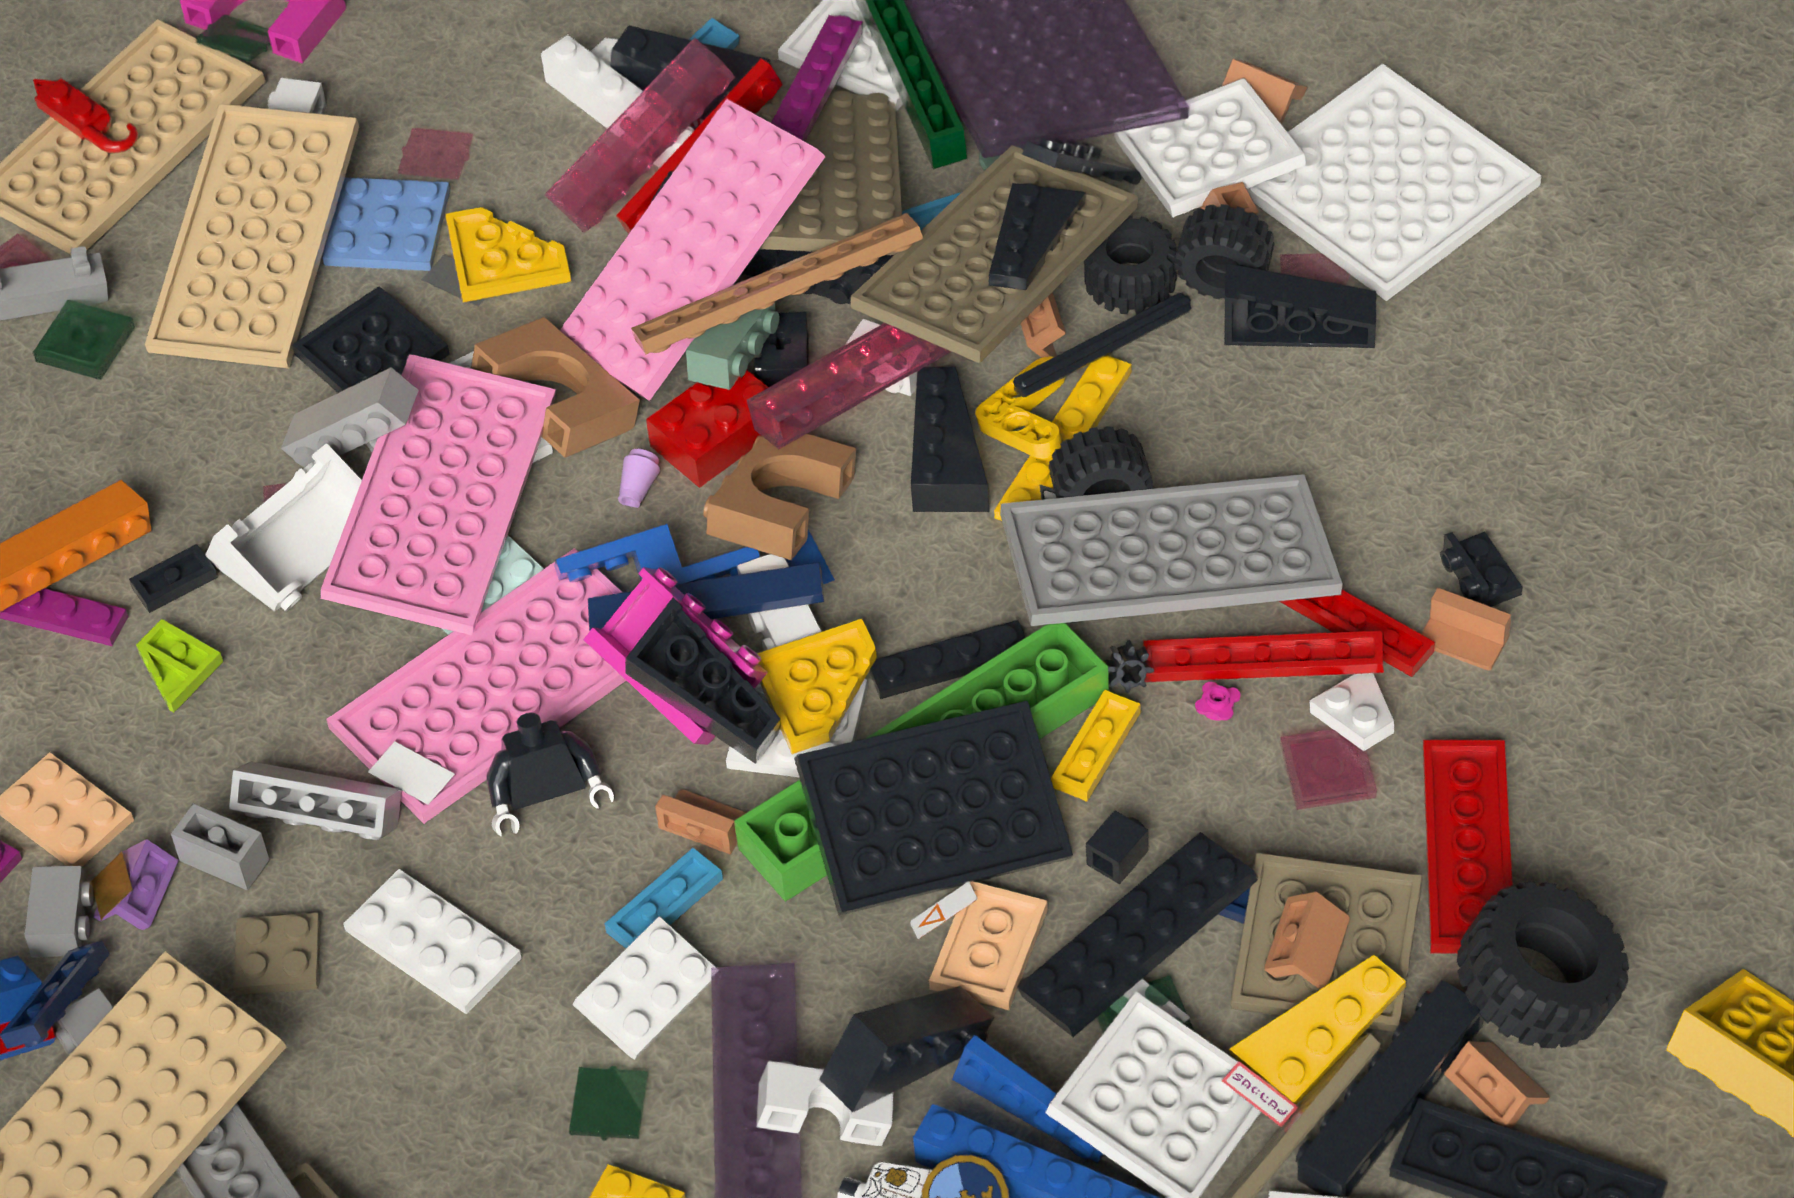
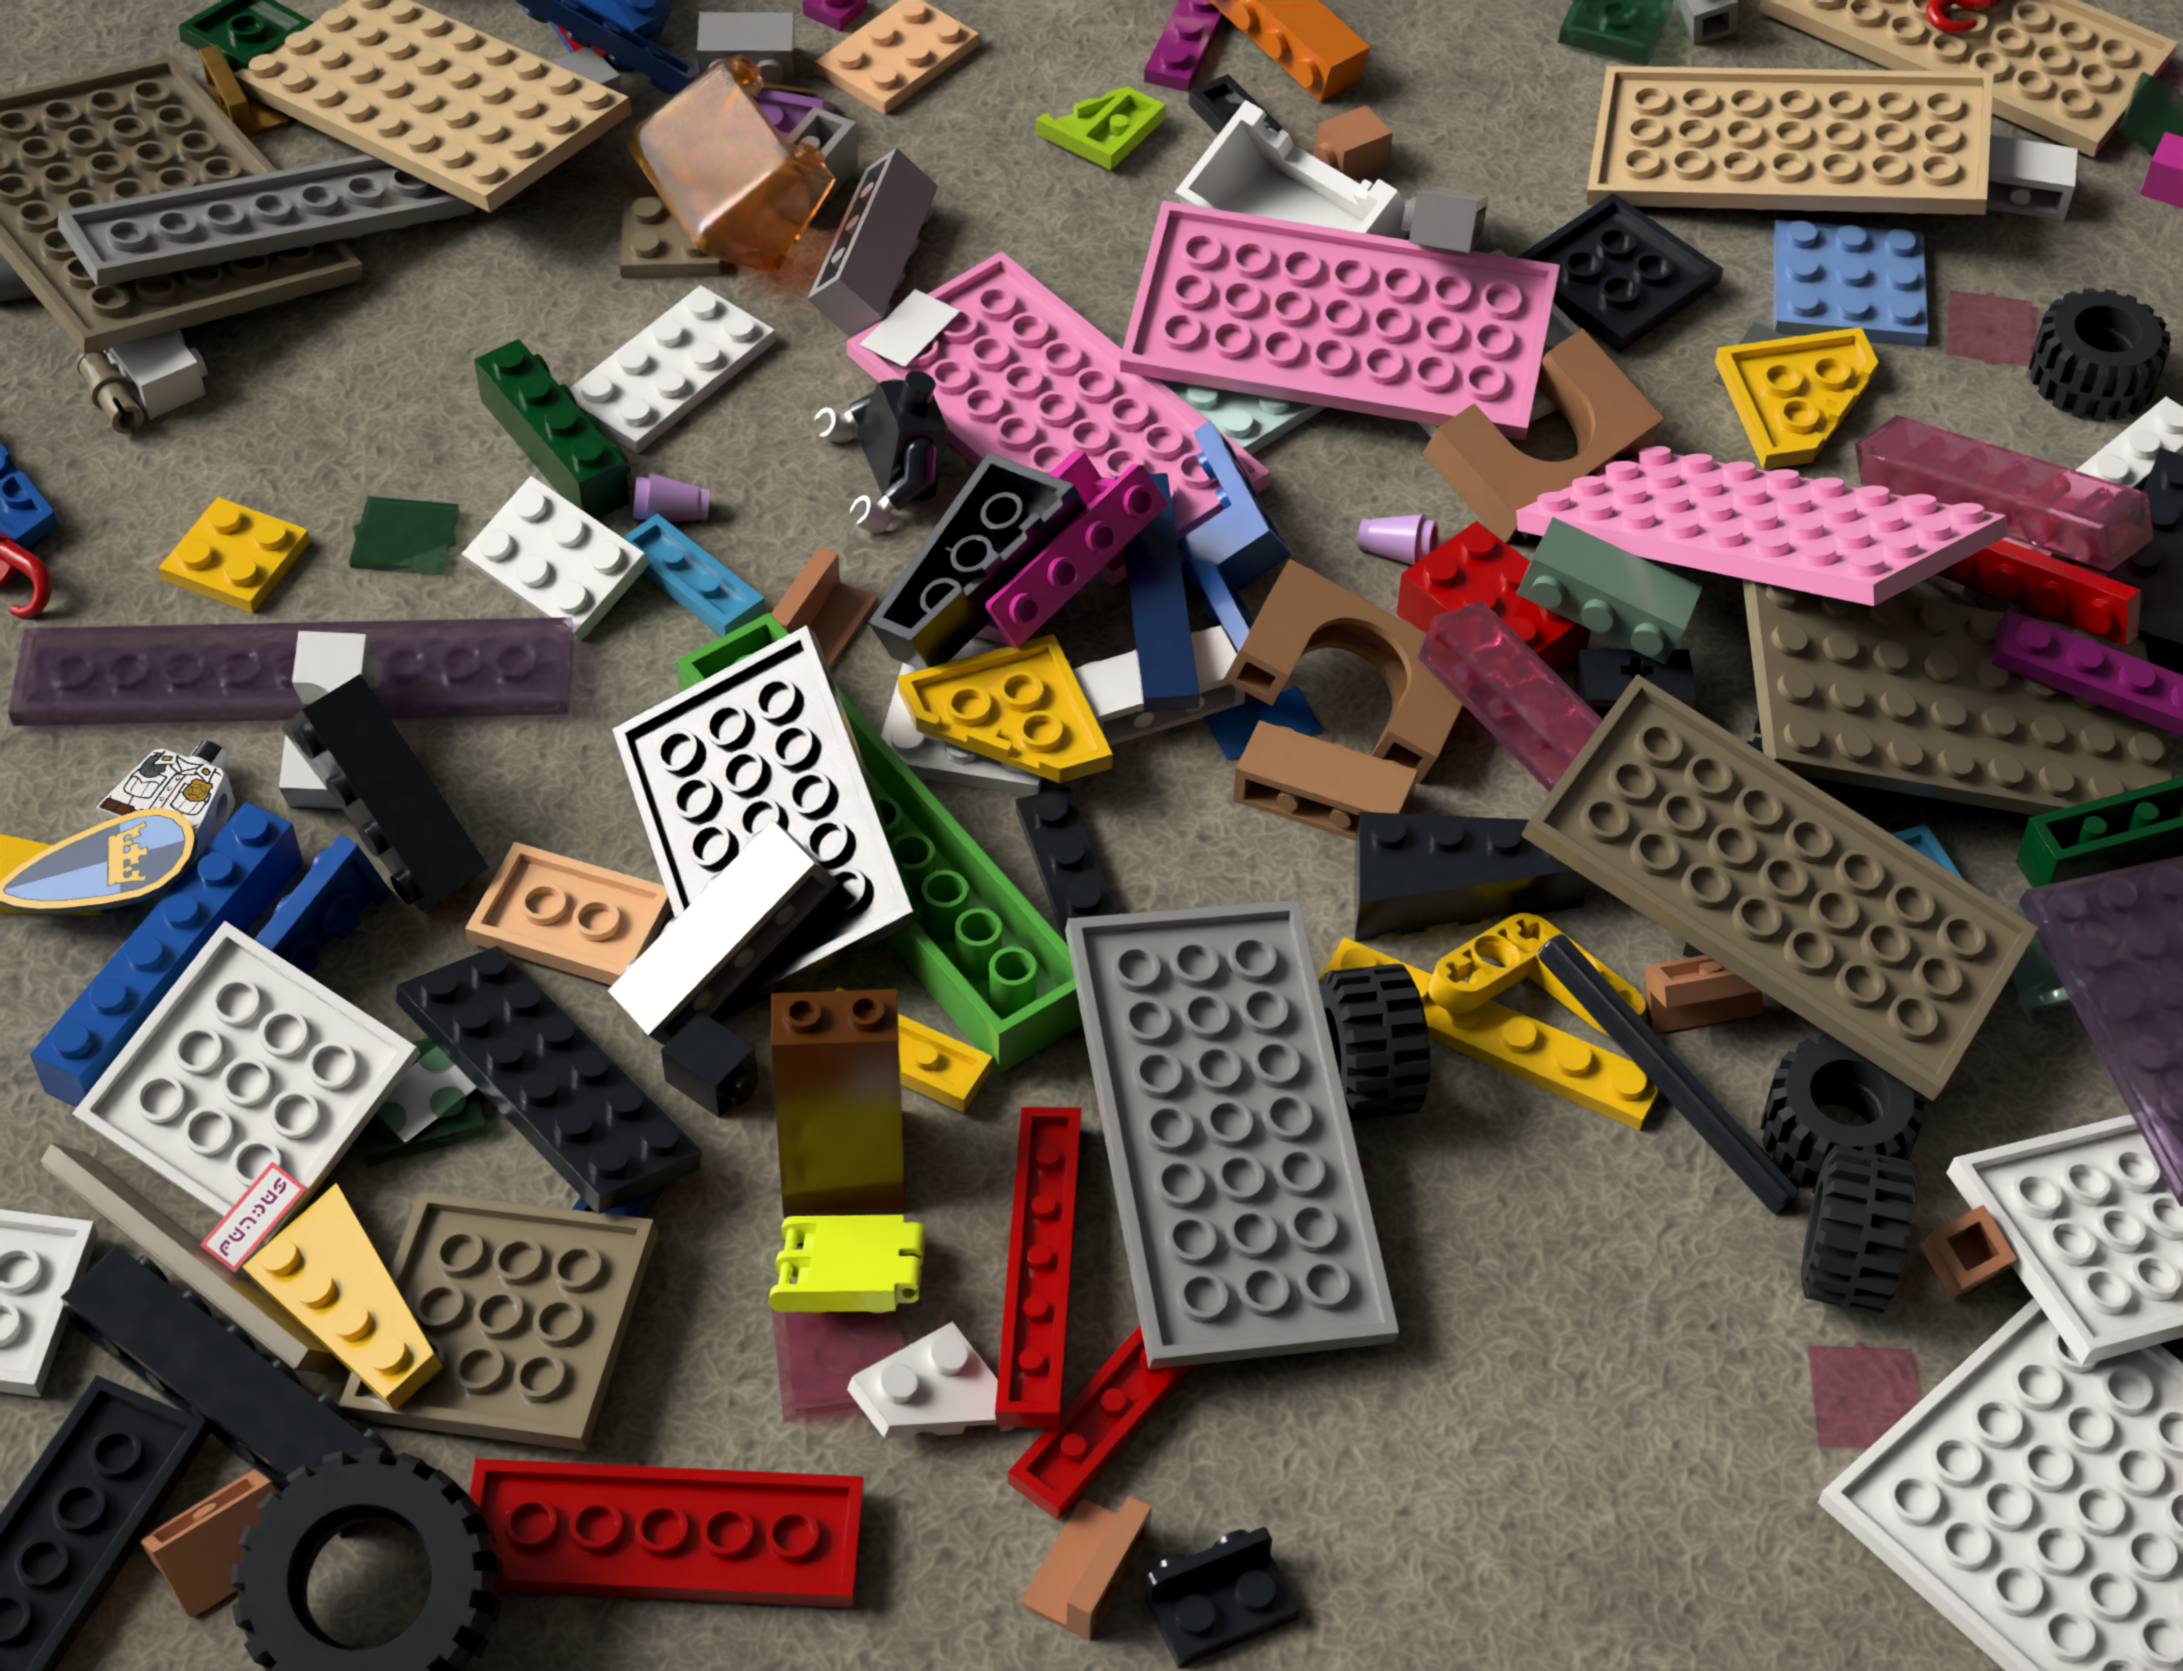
camera: 85 degrees right, 0 degrees up
(220, 499) = (1354, 143): none -> nougat brick
(234, 887) = (729, 170): none -> clear orange windscreen
(483, 90) = (2099, 354): none -> black tyre
(511, 1001) = (553, 429): none -> dark green brick
(585, 924) = (670, 499): none -> lavender cone
(785, 280) = (1677, 610): medium nougat plate -> none
(867, 517) = (1318, 780): none -> medium nougat brick
(943, 910) = (632, 863): white sticker -> none
(1029, 231) = (1841, 921): black wing -> none
(1030, 825) = (723, 933): none -> brick
(1080, 158) = (2034, 1022): black wing -> none
(1136, 659) = (1022, 1078): black gear -> none
(1174, 744) = (838, 1102): none -> reddish brown slope
(1217, 709) = (972, 1223): dark pink plate -> none
(1272, 754) = (848, 1264): none -> neon yellow plate
(1295, 311) = (1757, 1344): black wedge -> none
(1307, 939) = (479, 1276): nougat panel -> none

